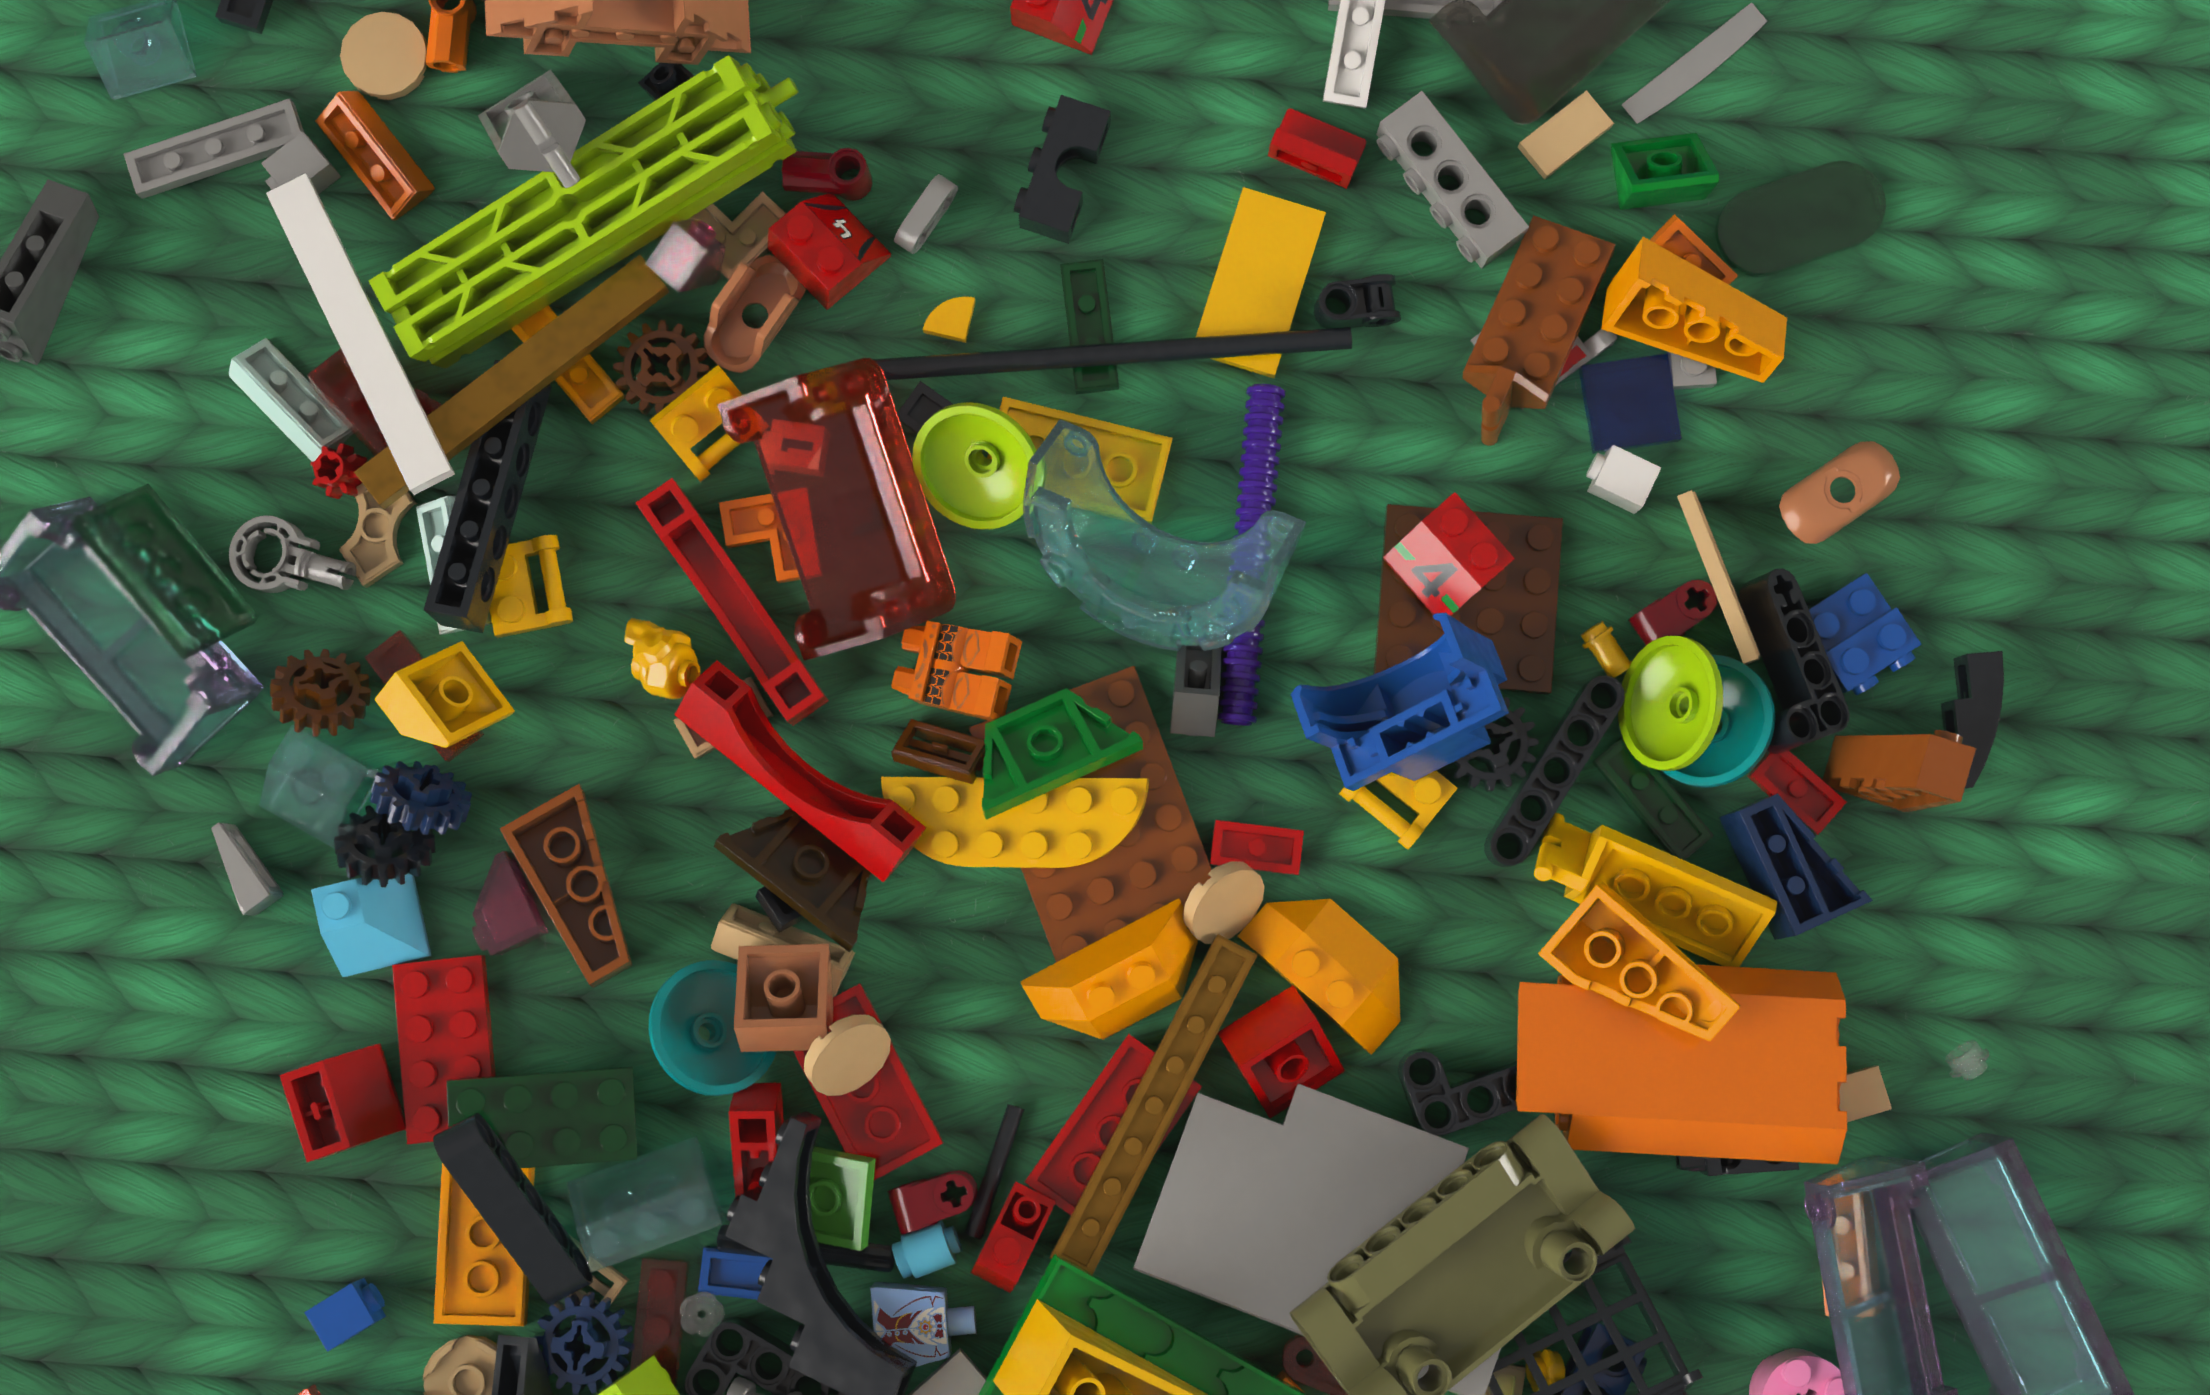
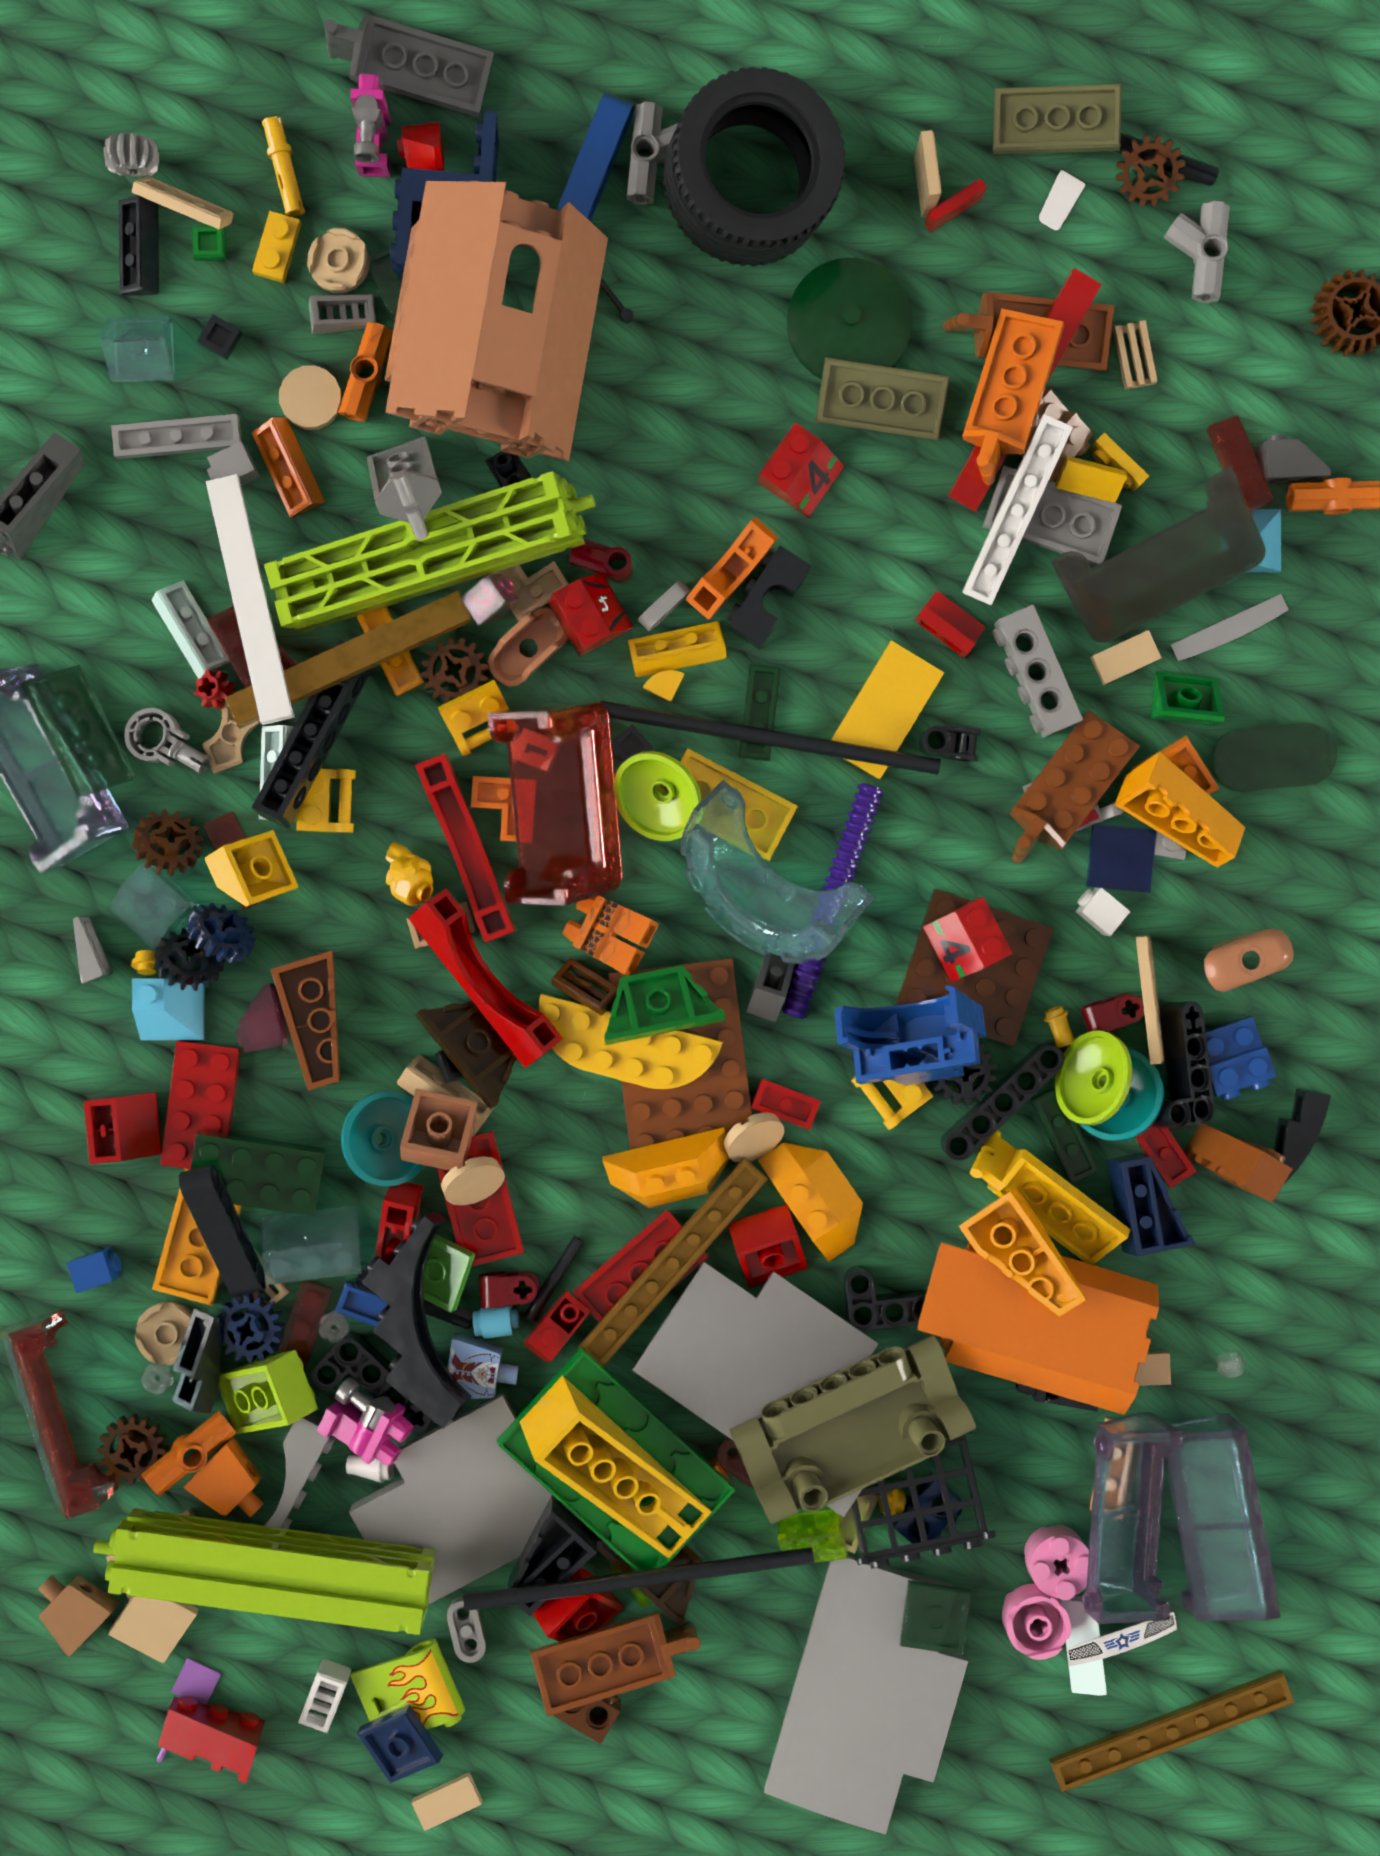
camera: 15 degrees right, 5 degrees up
(324, 866) = (144, 962): none -> yellow plate
(957, 269) = (677, 649): none -> yellow slope
(1007, 142) = (732, 569): none -> orange arch

